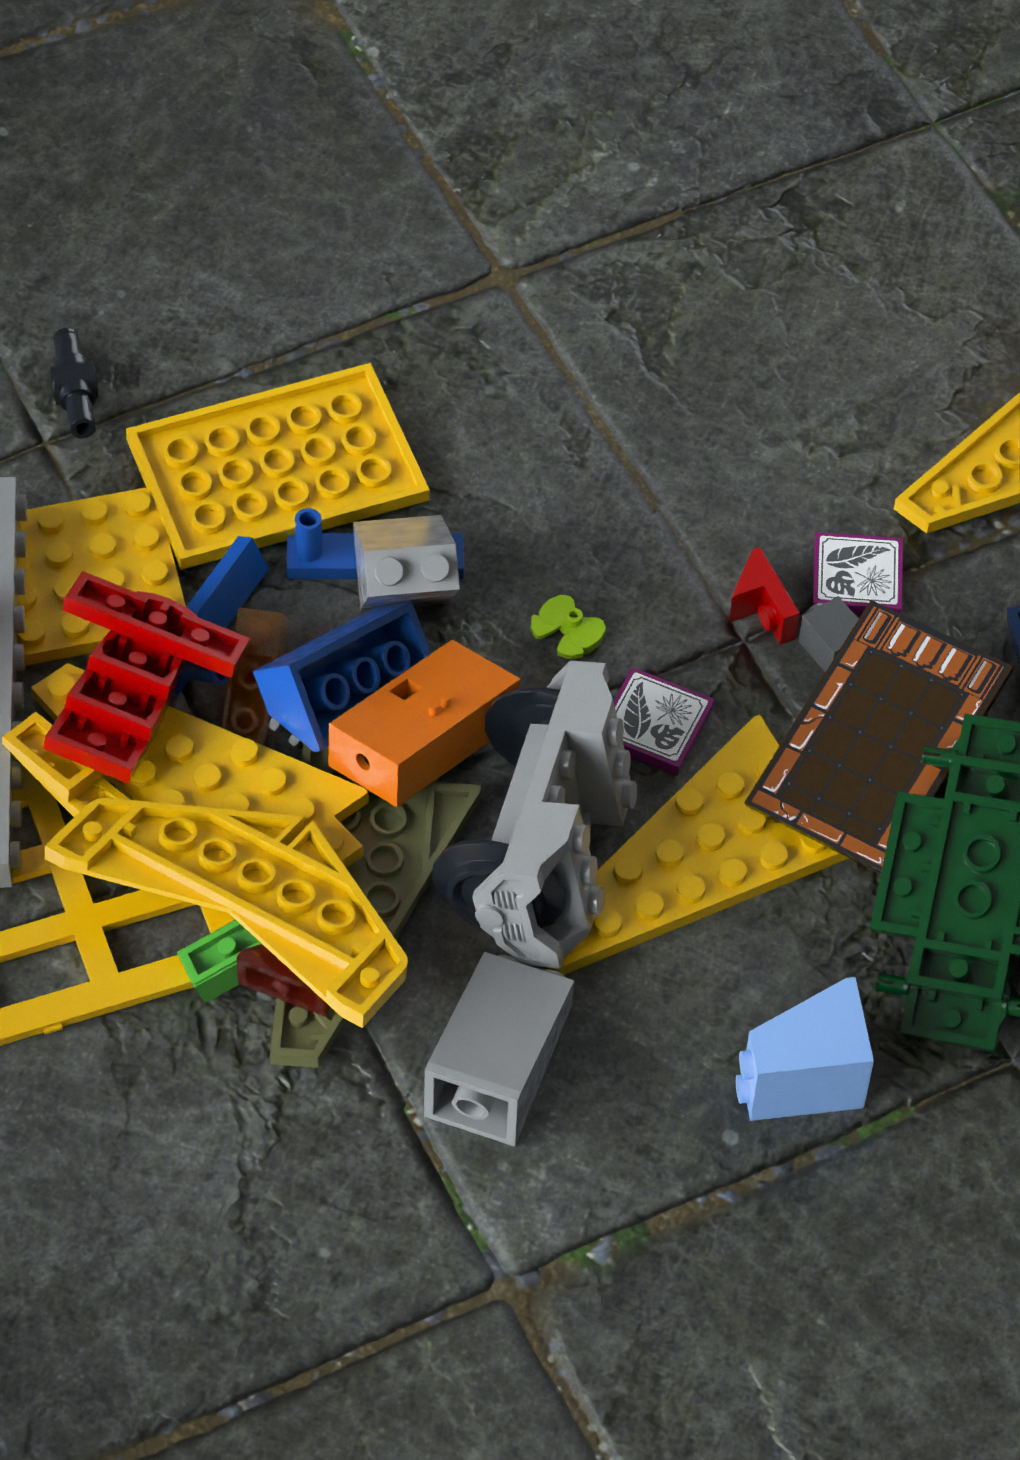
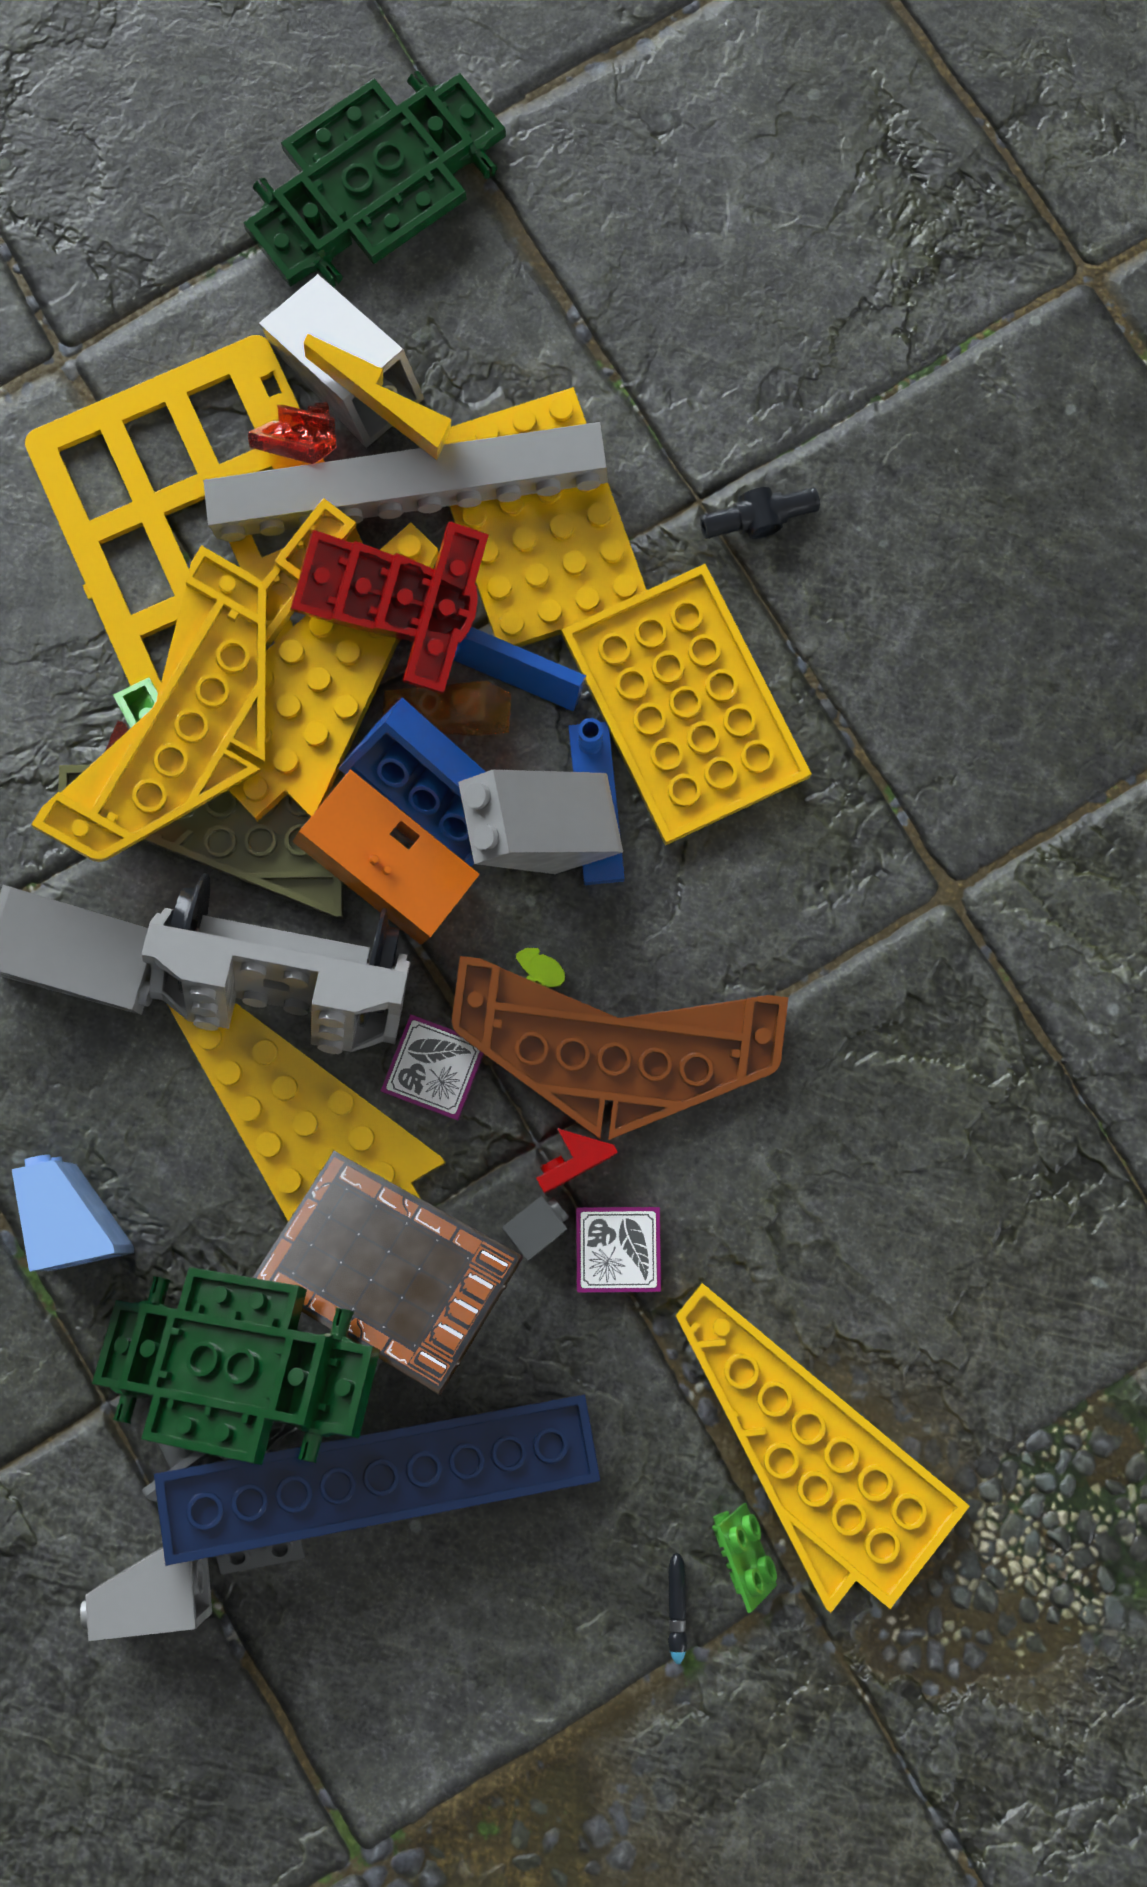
camera: 90 degrees right, 25 degrees up
(667, 556) = (639, 1062): none -> dark orange wing

